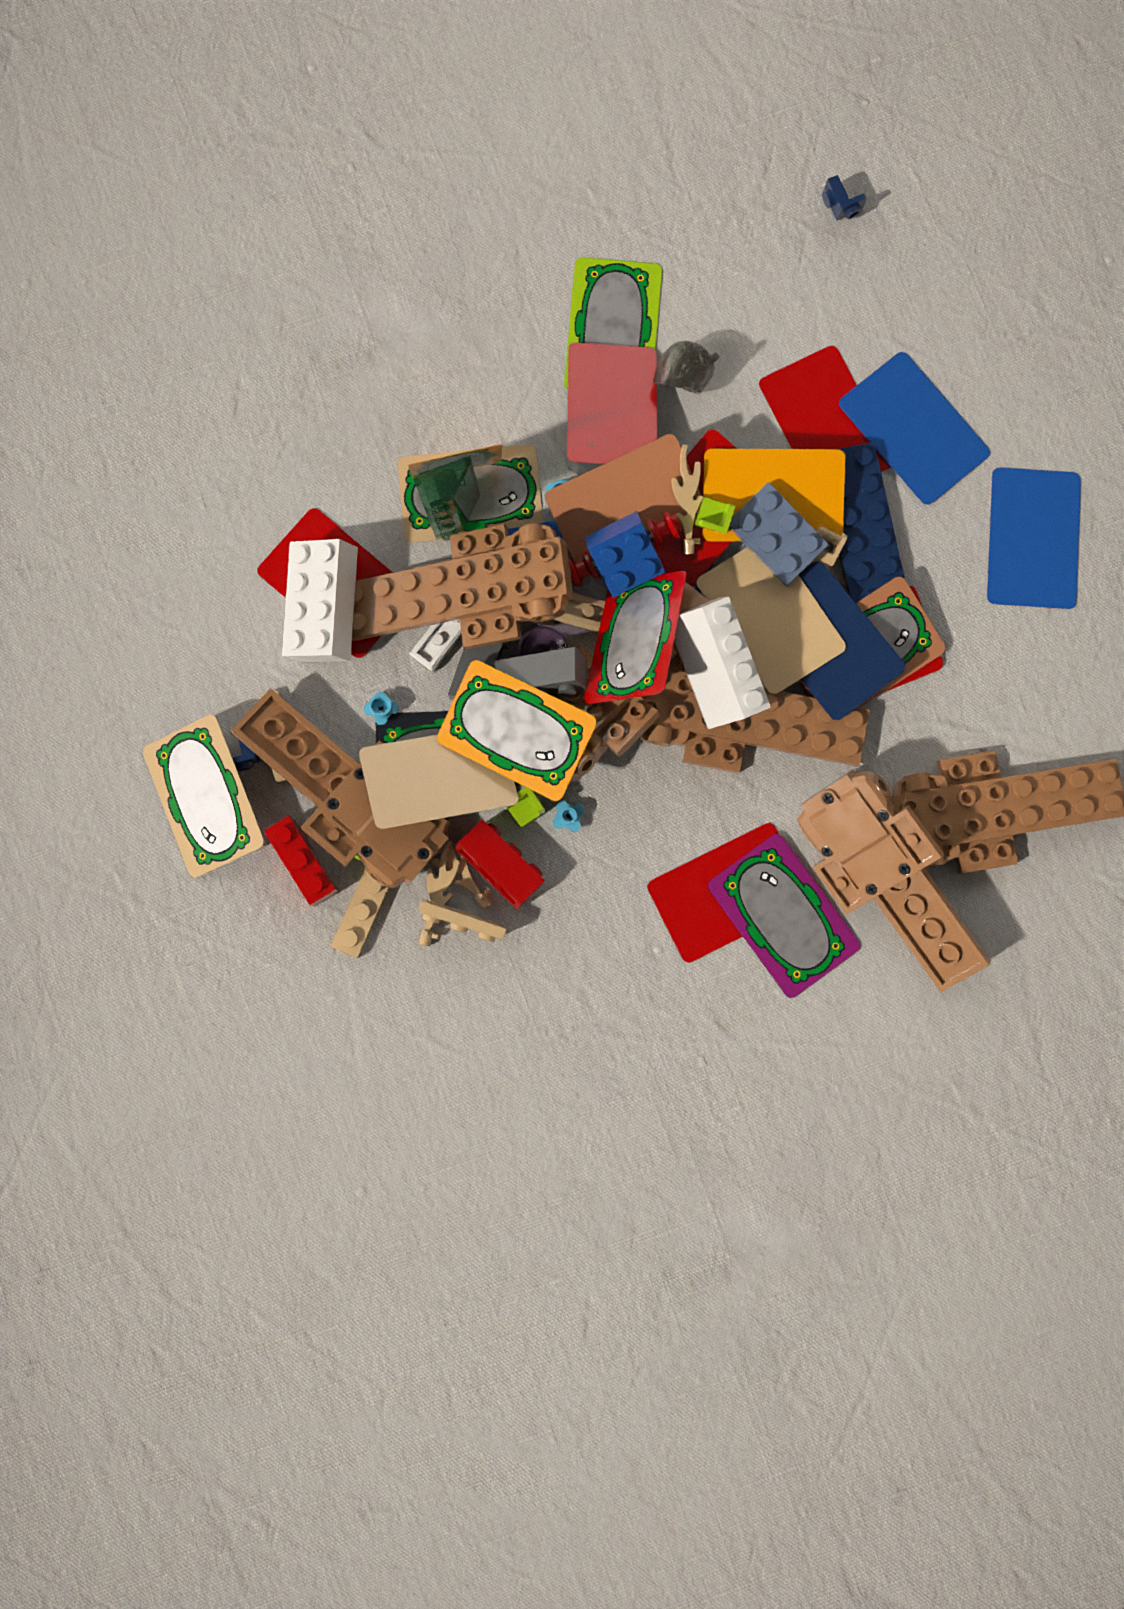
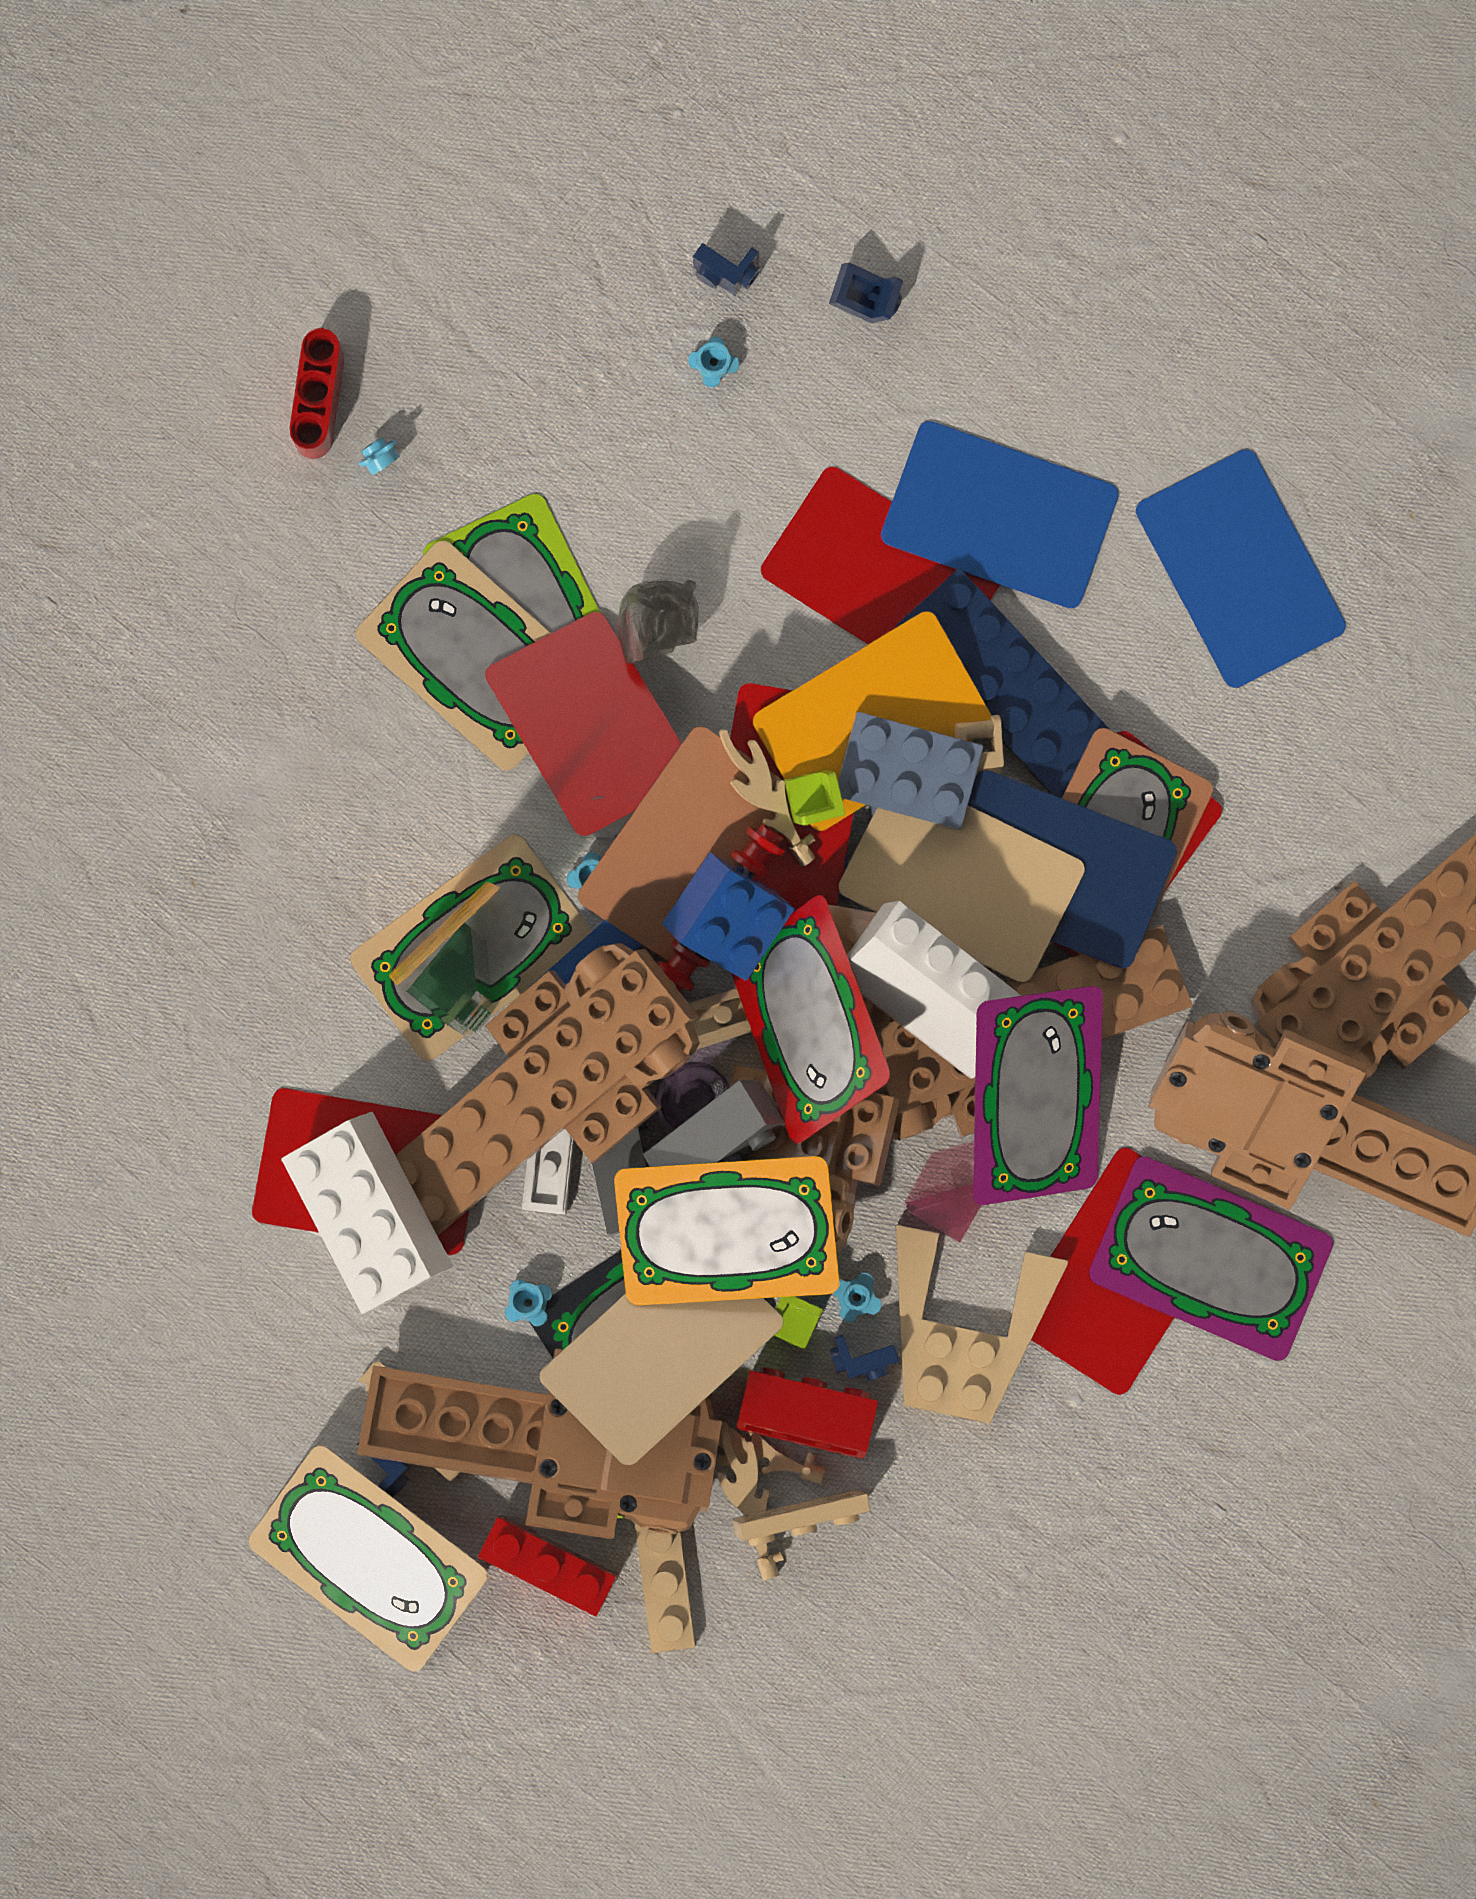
camera: 25 degrees left, 0 degrees up
(554, 858) = (874, 1363): none -> dark blue bracket
(558, 310) = (440, 638): none -> sticker
(573, 124) = (310, 374): none -> red beam
(583, 190) = (379, 455): none -> medium azure plate
(604, 892) = (953, 1366): none -> tan wing
(652, 798) = (946, 1211): none -> clear pink slope
(741, 759) = (1037, 1094): none -> sticker
(806, 241) = (713, 350): none -> medium azure plate
(912, 259) = (866, 294): none -> dark blue bracket

